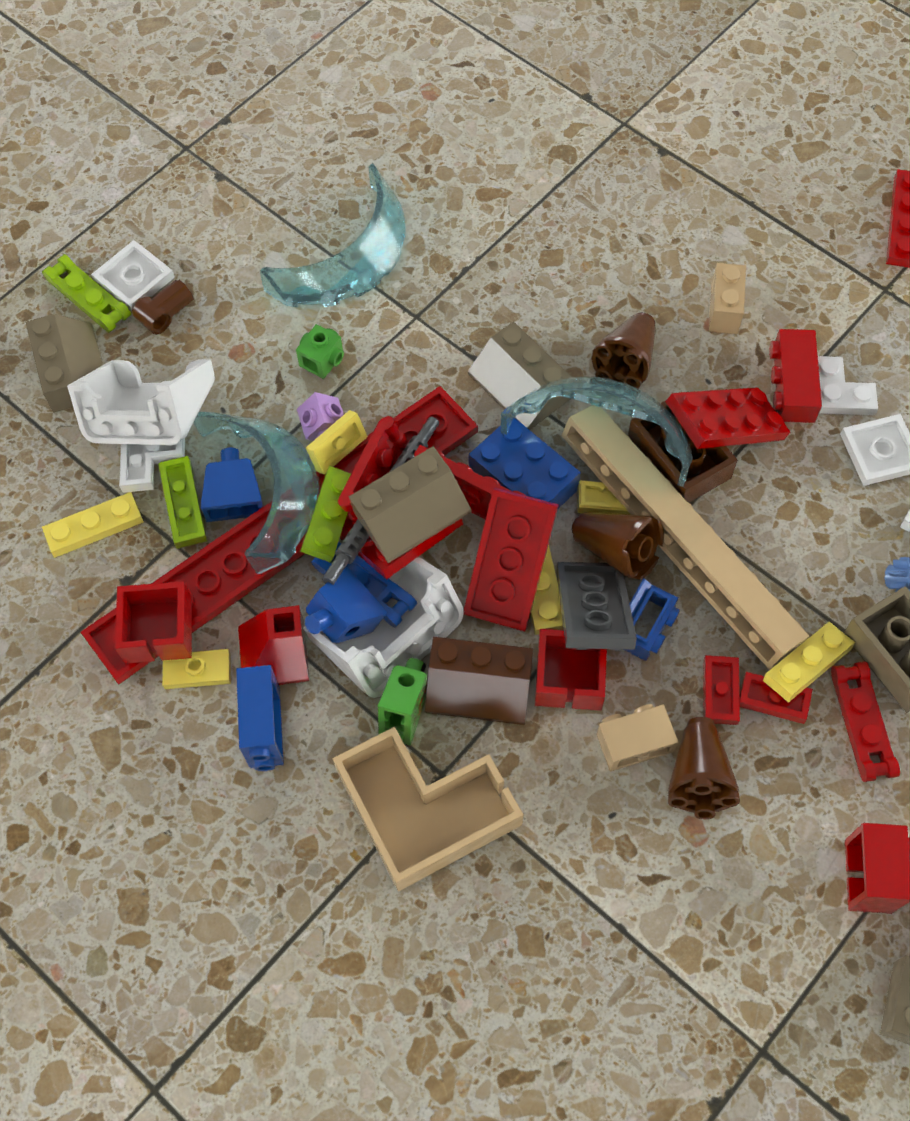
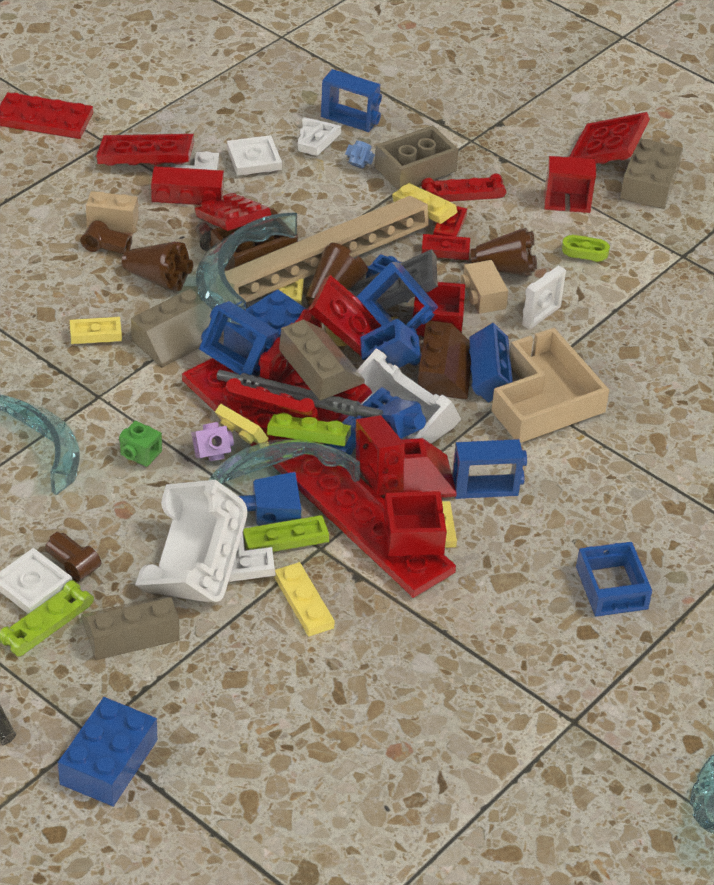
camera: 95 degrees left, 20 degrees down
(44, 869) = (614, 599): none -> blue window
(274, 584) = (383, 457): none -> red window
(403, 699) = (469, 393): bright green torso -> none
(470, 422) = (210, 339): none -> blue window
(470, 734) = (489, 361): none -> blue brick
(472, 603) = (395, 341): none -> blue torso
(515, 299) = (95, 330): none -> light yellow plate
(540, 603) = (383, 282): none -> blue window
(611, 817) = (543, 297): none -> white plate
(680, 295) = (100, 236): none -> reddish brown piece
(747, 891) = (585, 248): none -> lime plate
(860, 324) = (145, 149): none -> red plate

